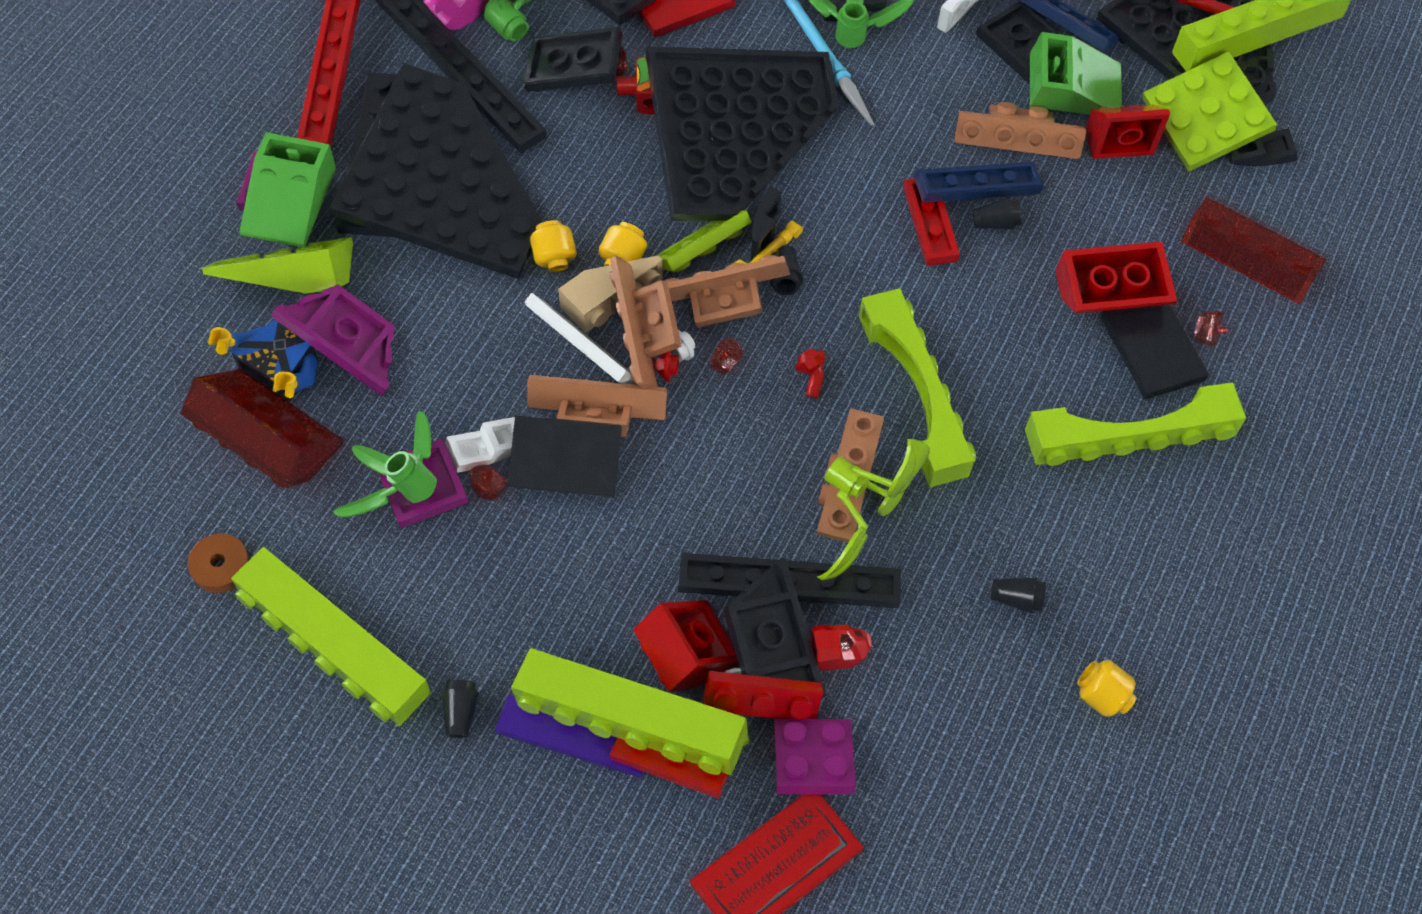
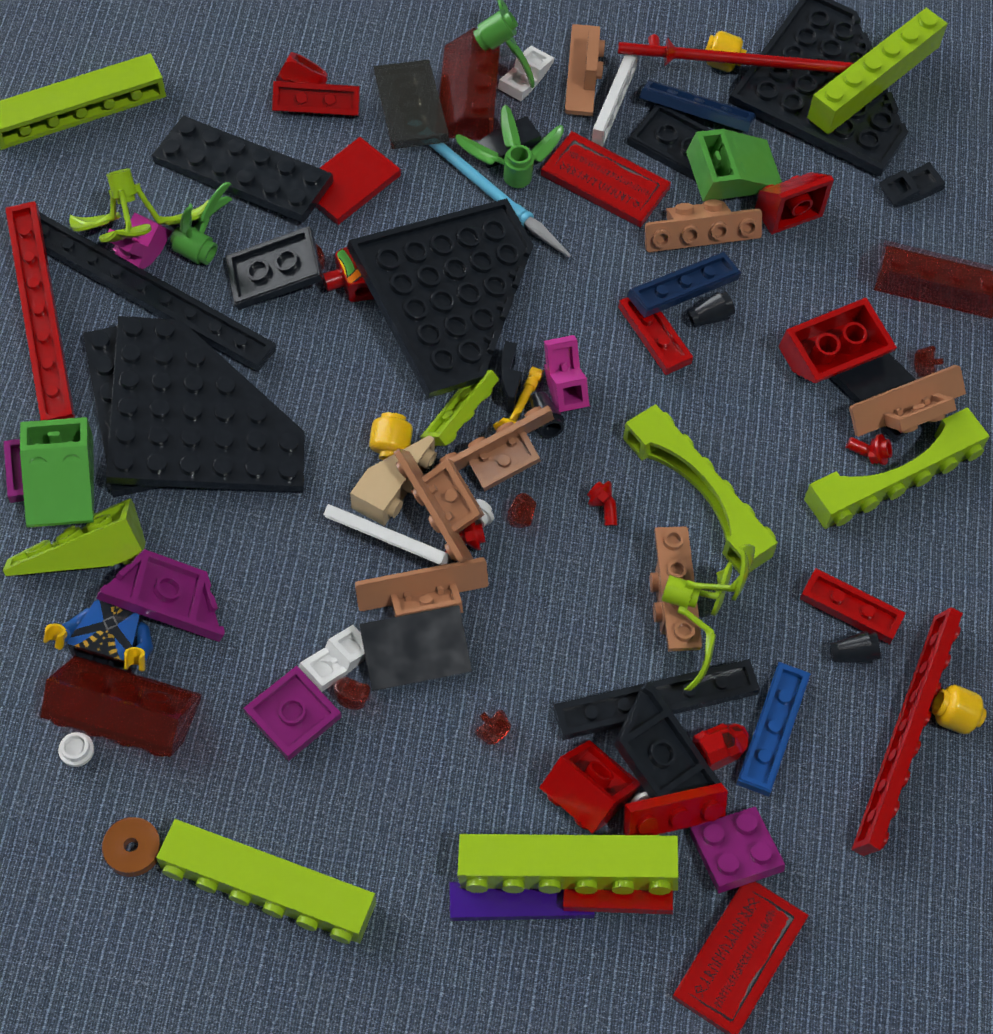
camera: 20 degrees left, 0 degrees up
(204, 455) = (76, 749): none -> white plate
(402, 470) = (280, 706): bright green plant -> none
(459, 705) = (410, 908): black cone -> none
(553, 246) = (326, 452): yellow head -> none
(613, 558) = (493, 729): none -> clear red piece
(820, 234) = (563, 374): none -> dark pink brick
(901, 648) = (773, 729): none -> blue tile
(939, 61) = (605, 179): none -> red tile
(1033, 549) = (852, 605): none -> red plate
(1035, 704) = (905, 738): none -> red plate
(1121, 402) = (877, 452): none -> red plate
(1172, 361) = (911, 403): none -> nougat bracket
(1211, 111) = (863, 163): lime plate -> none

